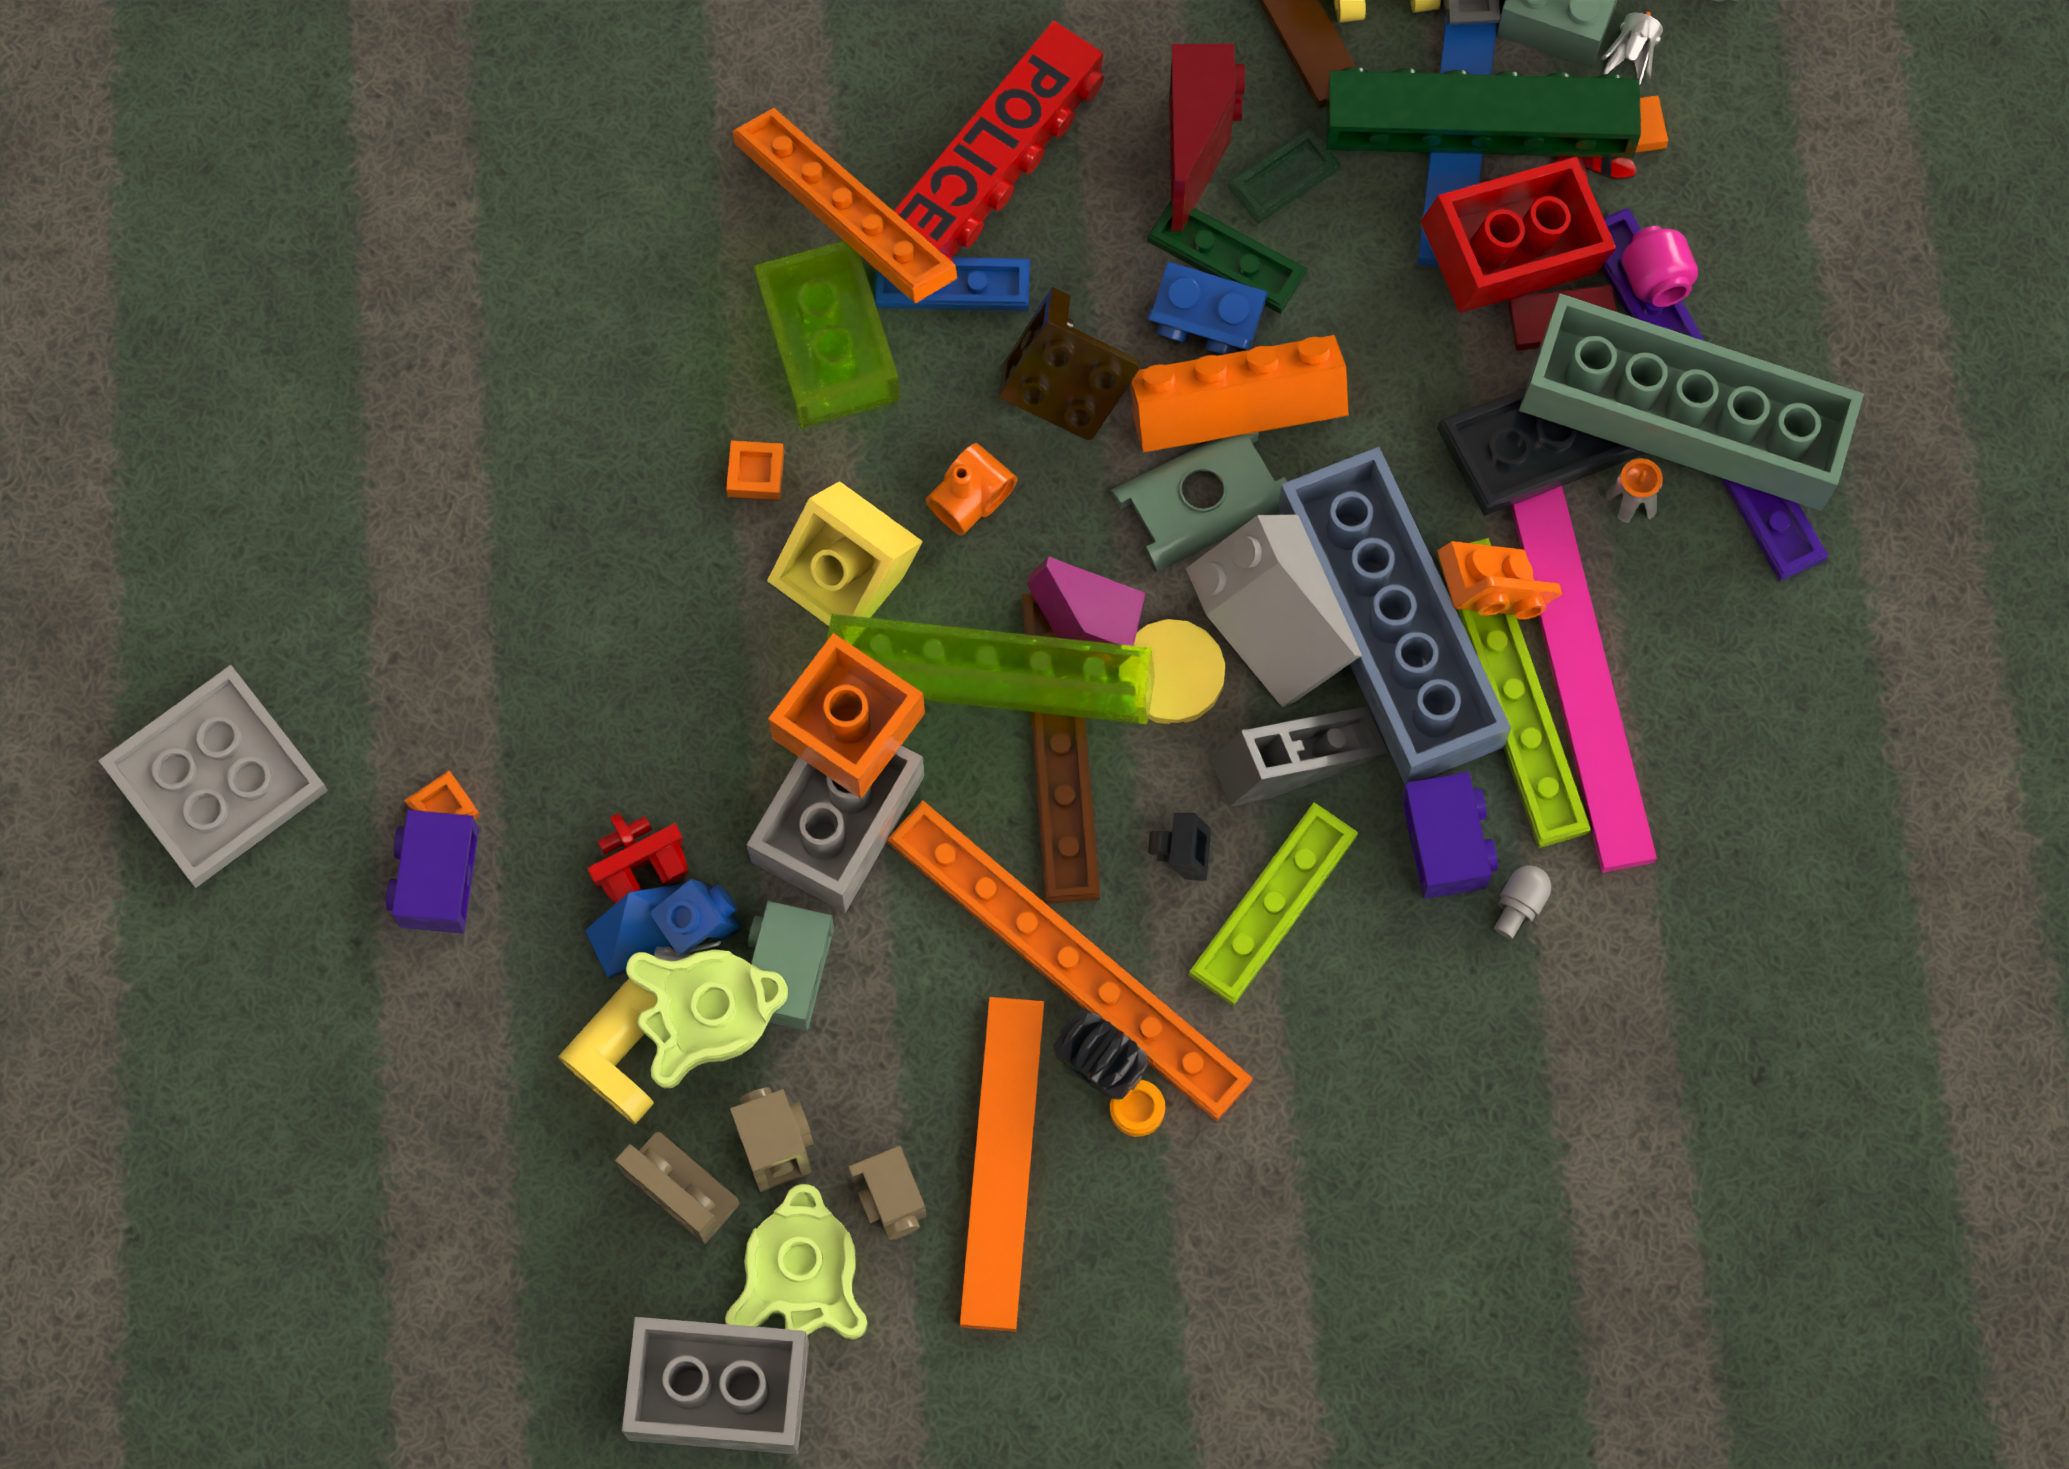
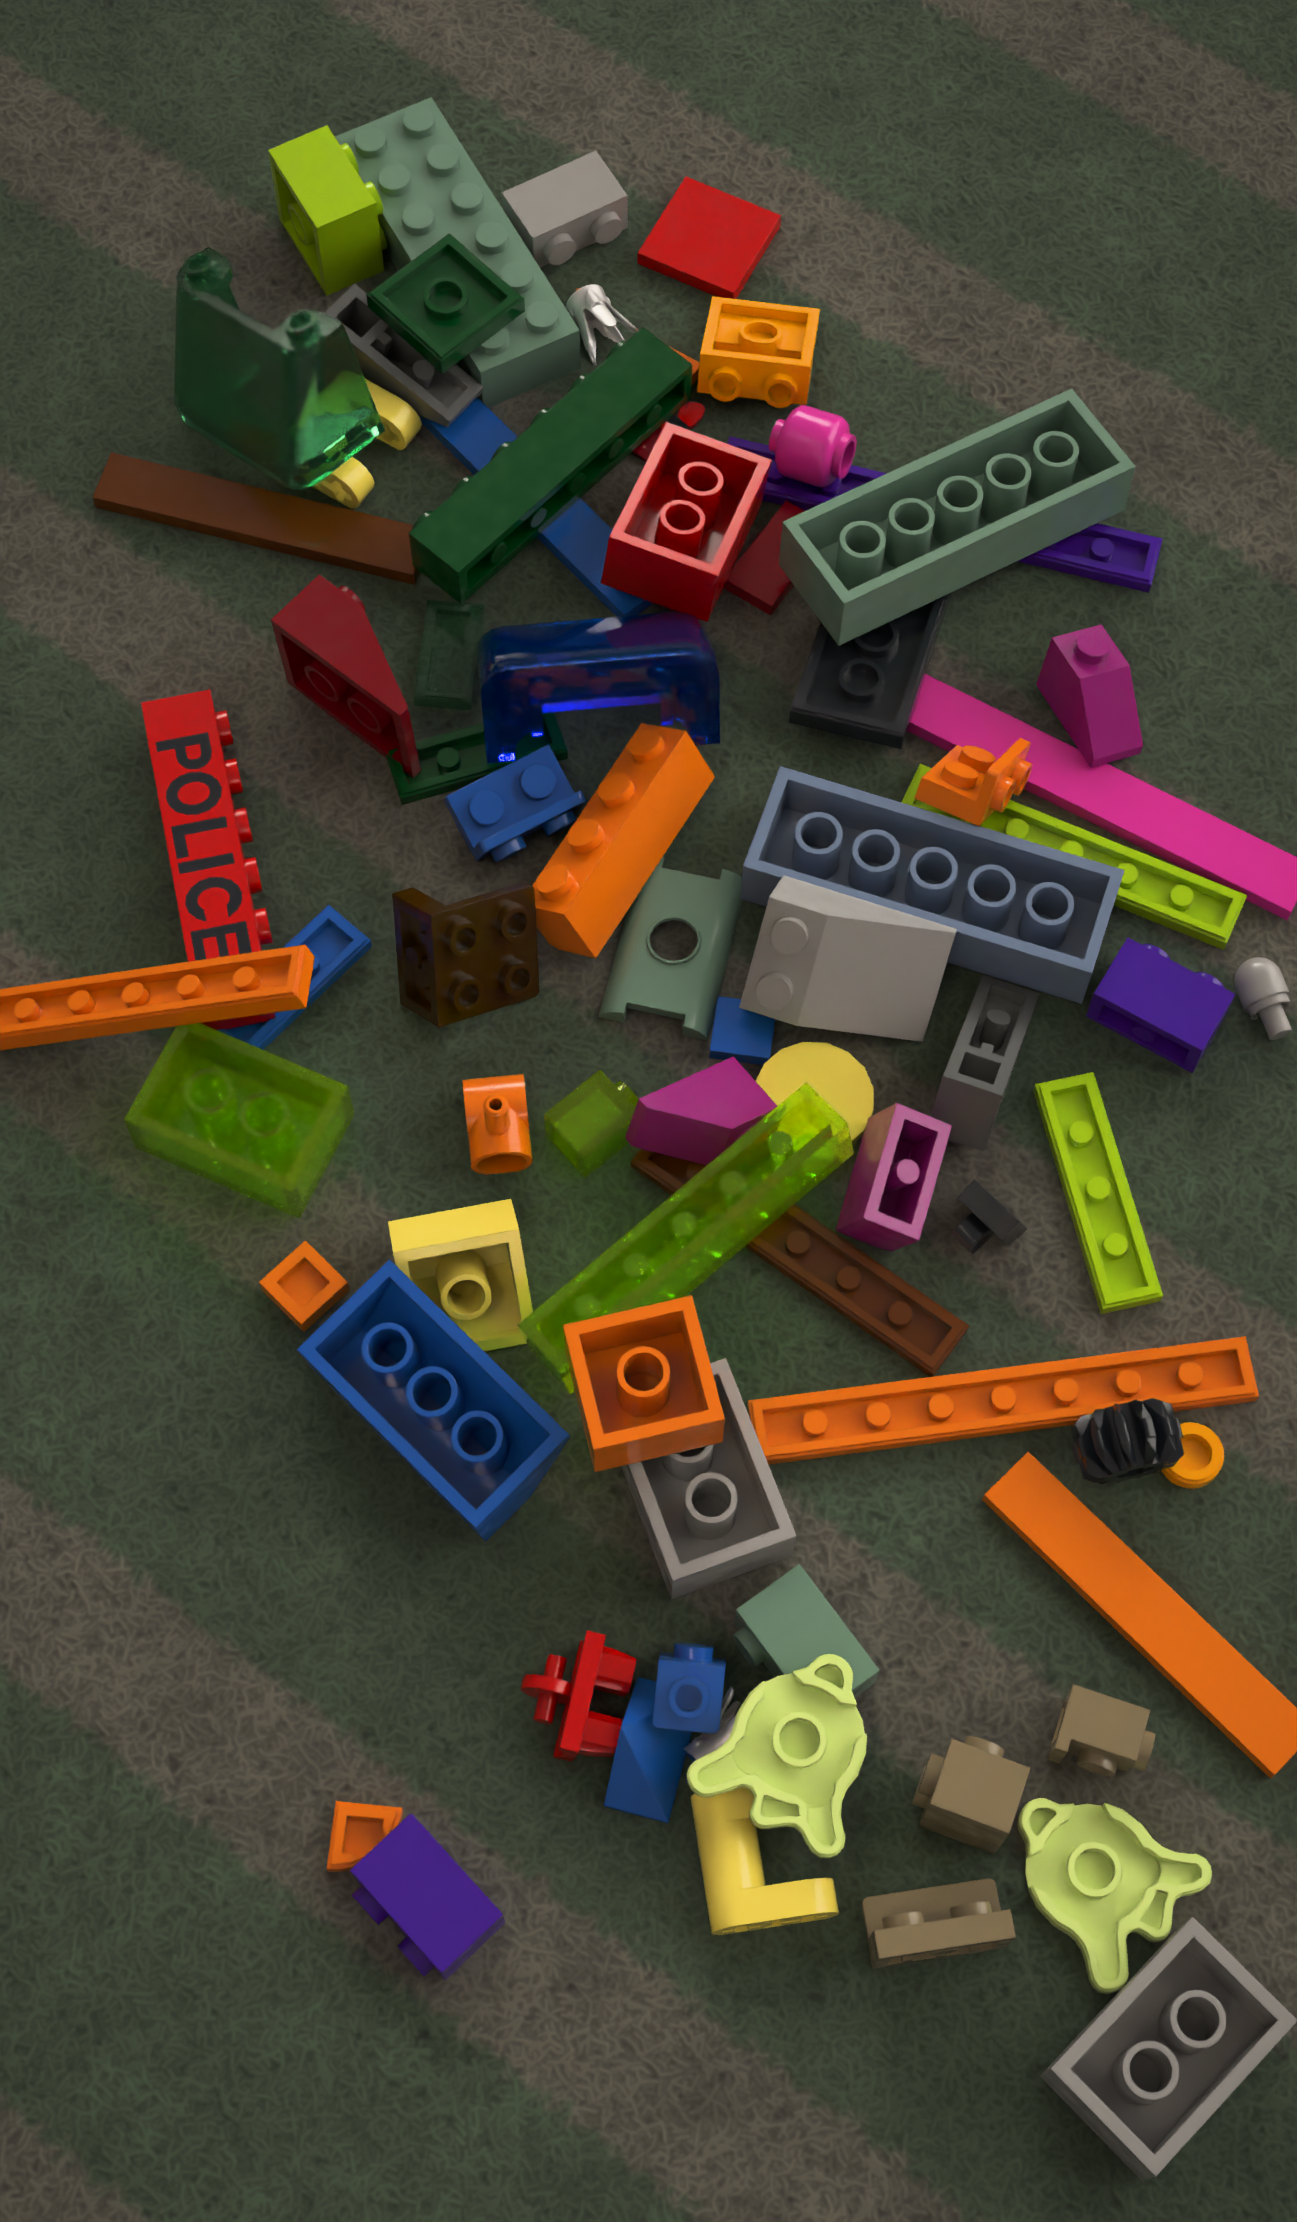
camera: 50 degrees left, 5 degrees down
(213, 776) = (132, 2037): light grey plate -> none
(739, 608) = (436, 1399): none -> blue slope
(1022, 544) = (591, 1122): none -> clear neon green brick
(1153, 763) = (893, 1178): none -> magenta brick
(1174, 588) = (740, 1033): none -> blue tile
(1345, 271) = (594, 667): none -> clear blue windscreen
(1639, 484) = (983, 613): piece -> none
(1644, 606) = (1092, 694): none -> magenta slope
(1712, 168) = (758, 351): none -> light orange plate
(1780, 62) = (709, 239): none -> red tile

